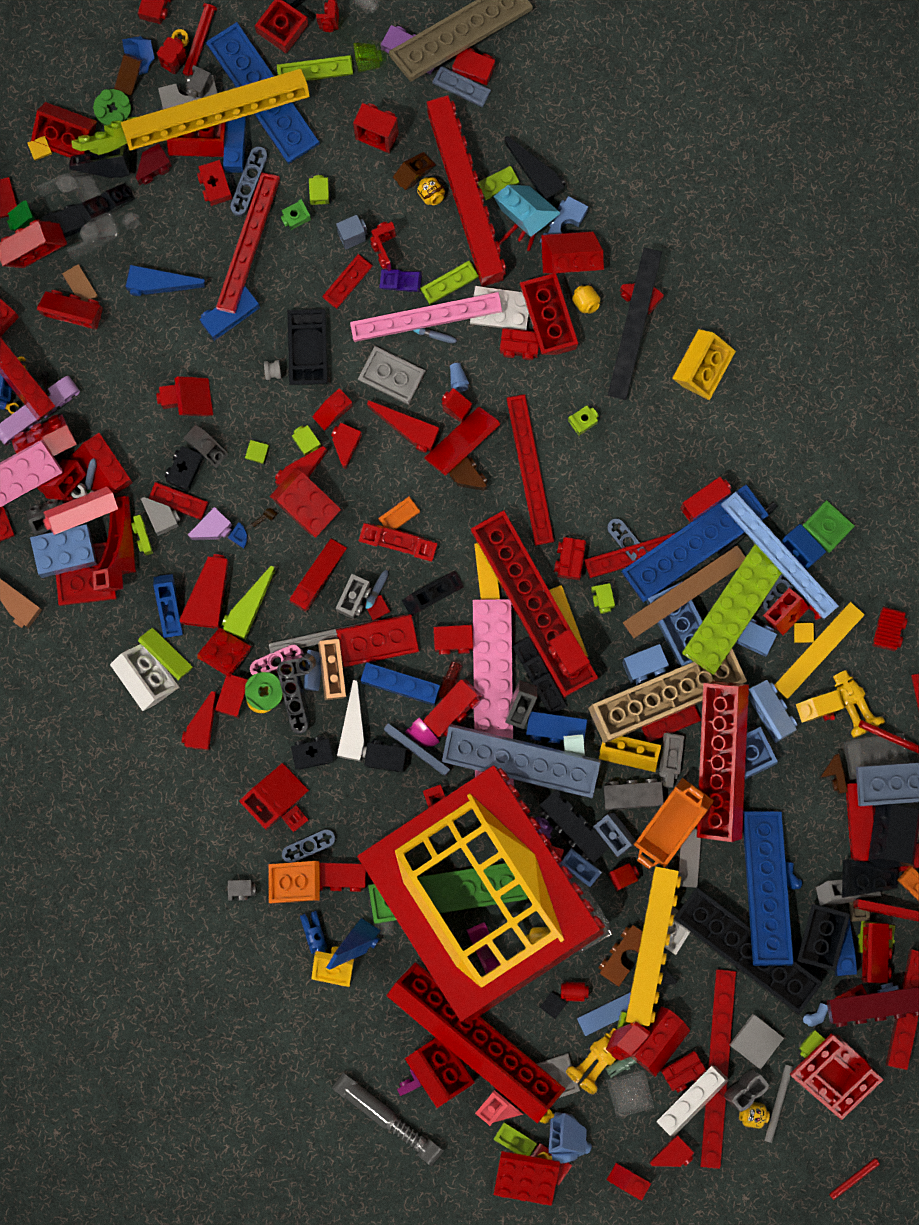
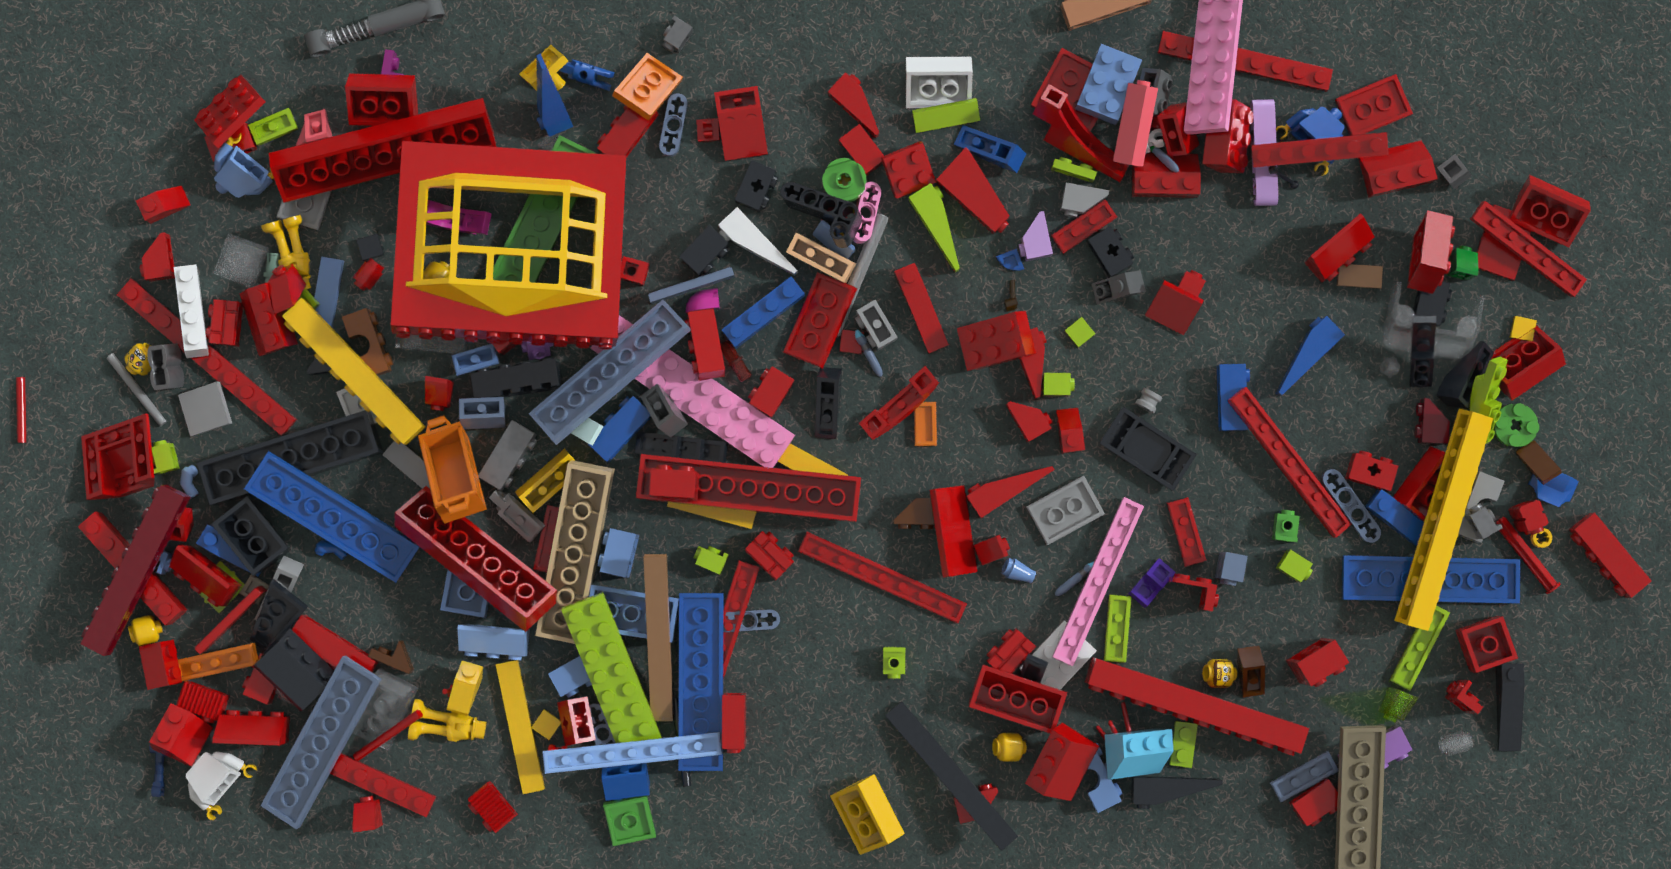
camera: 125 degrees right, 5 degrees up
(519, 318) = (1033, 668): none -> black tile

